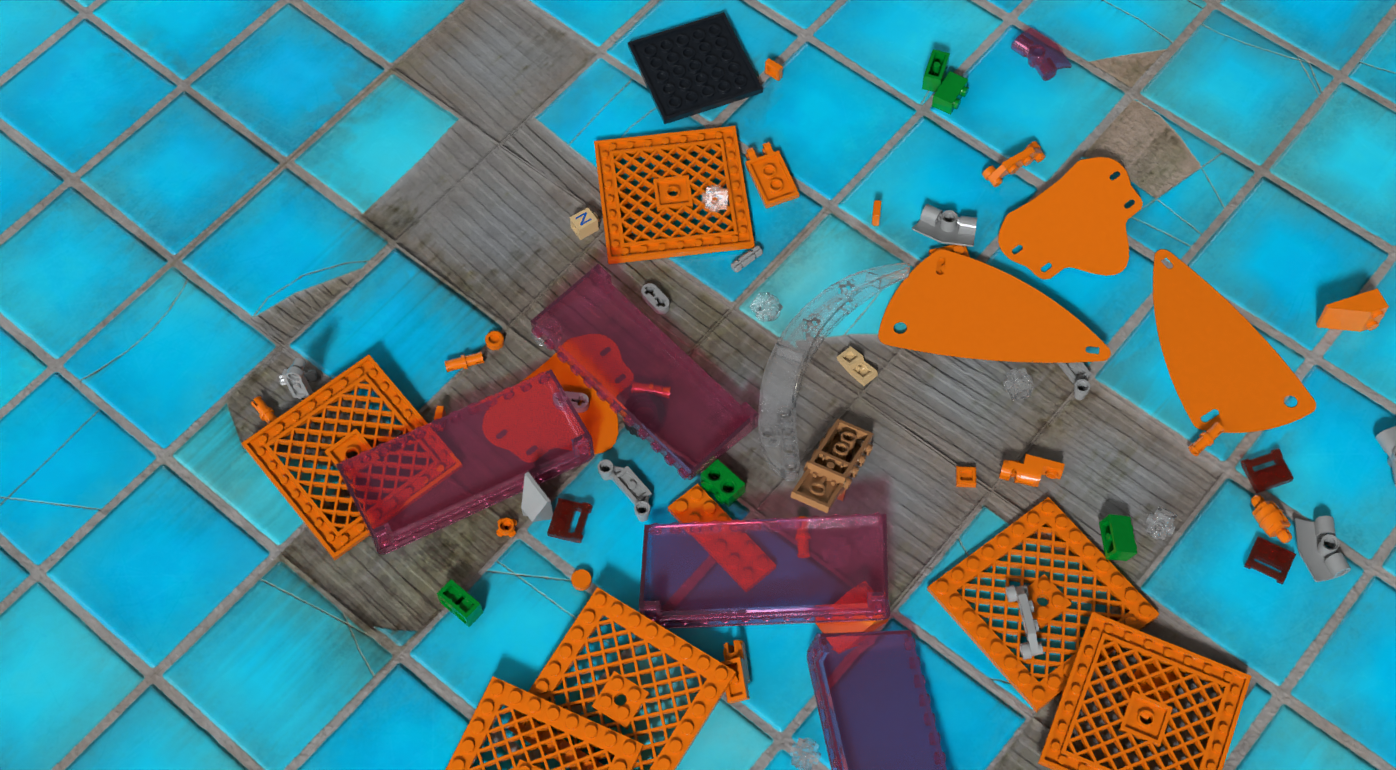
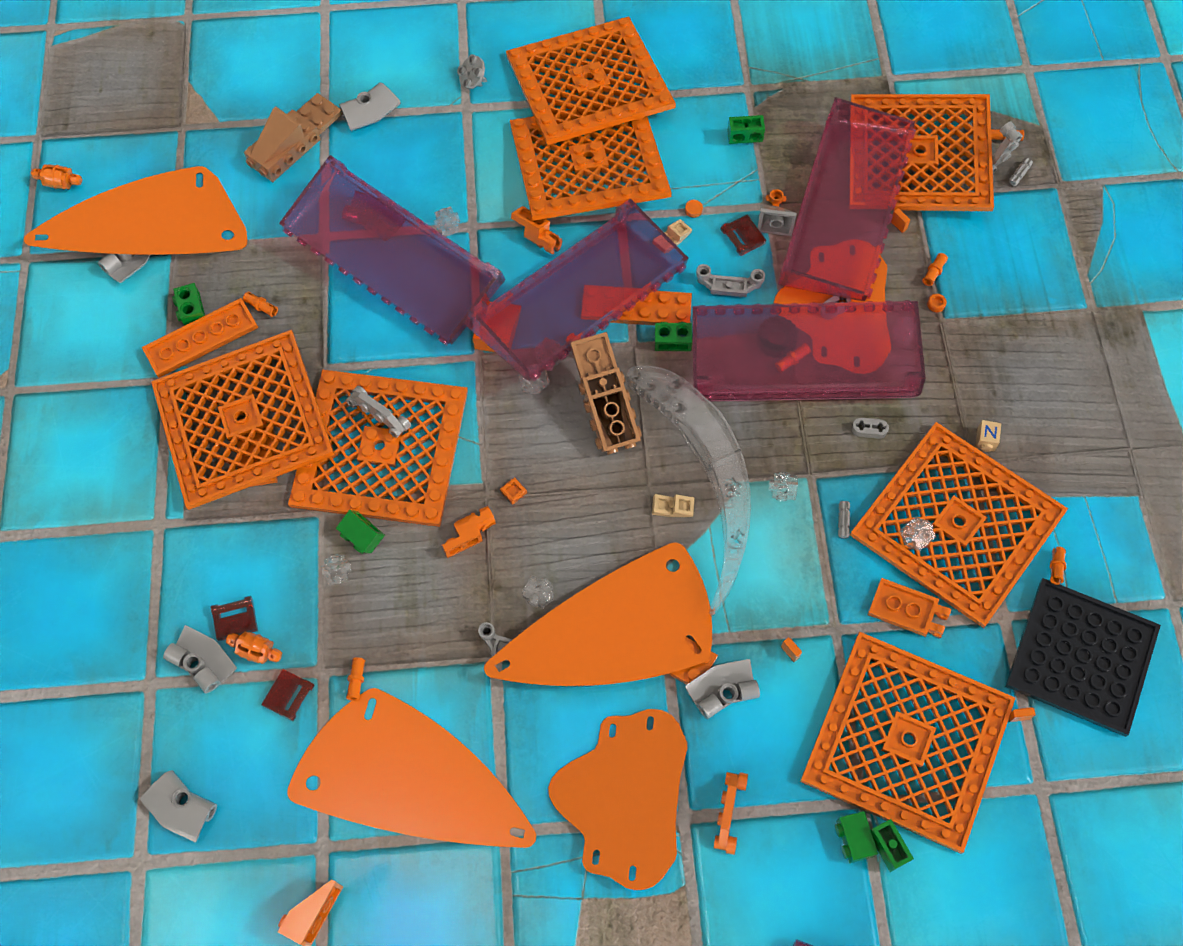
camera: 135 degrees right, 5 degrees up
(623, 570) = (678, 231): none -> tan slope
(645, 118) = (1058, 565): none -> orange pin
(829, 173) = (998, 705): none -> orange plate

